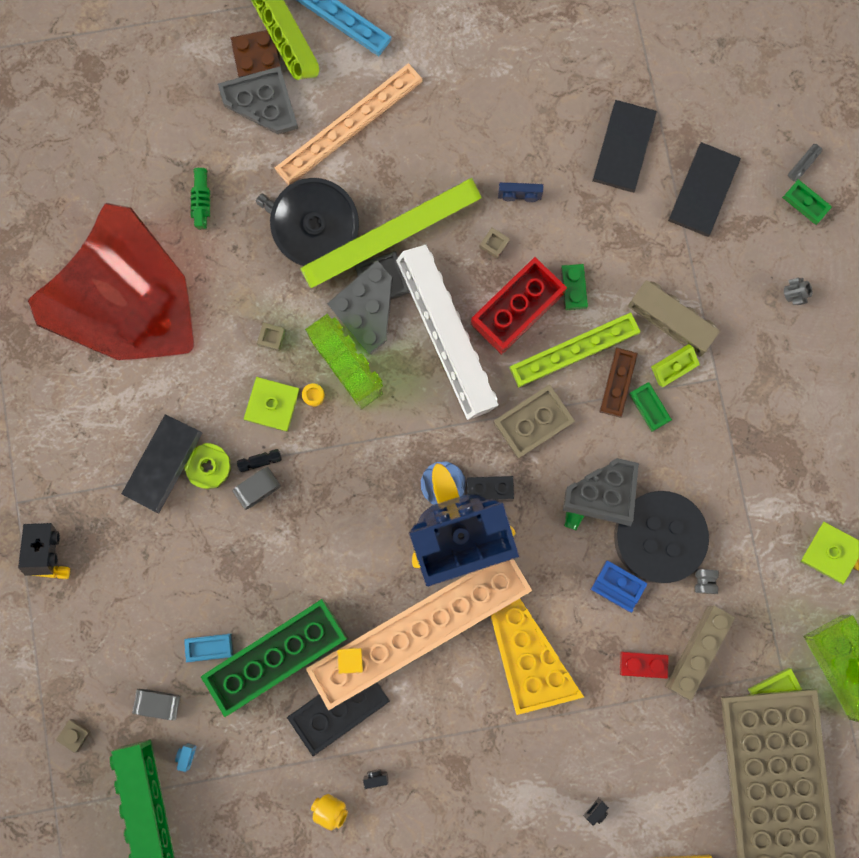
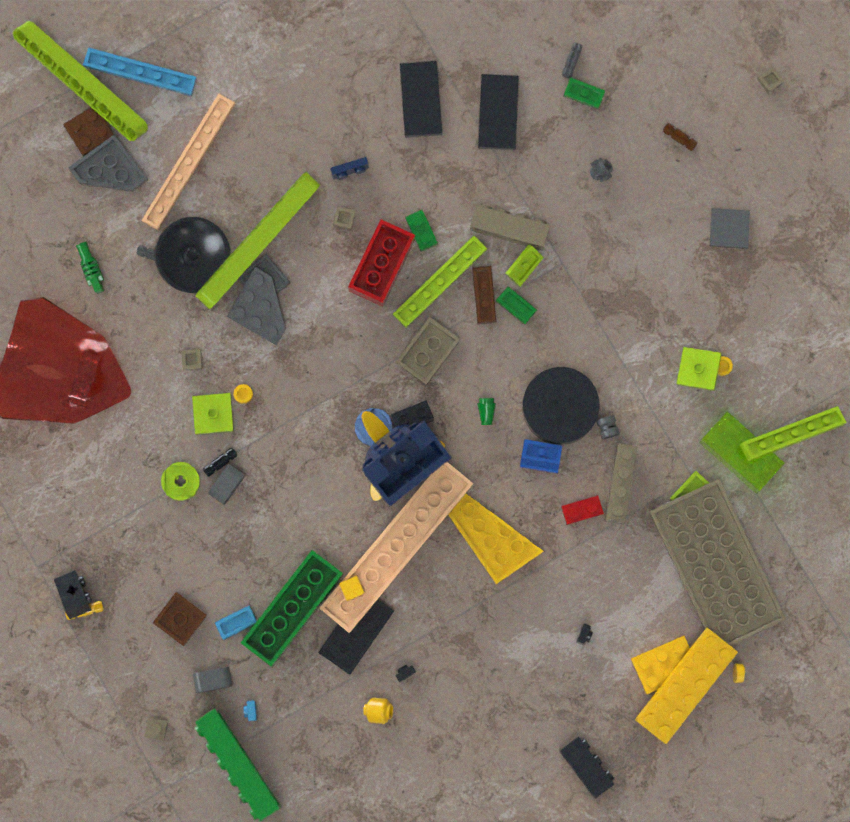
camera: 20 degrees left, 0 degrees up
(147, 620) = (180, 619): none -> reddish brown plate
(162, 463) = (143, 492): black tile -> none
(343, 360) = (259, 358): clear neon green brick -> none
(447, 332) = (332, 304): white brick -> none
(605, 493) = (504, 386): dark grey plate -> none

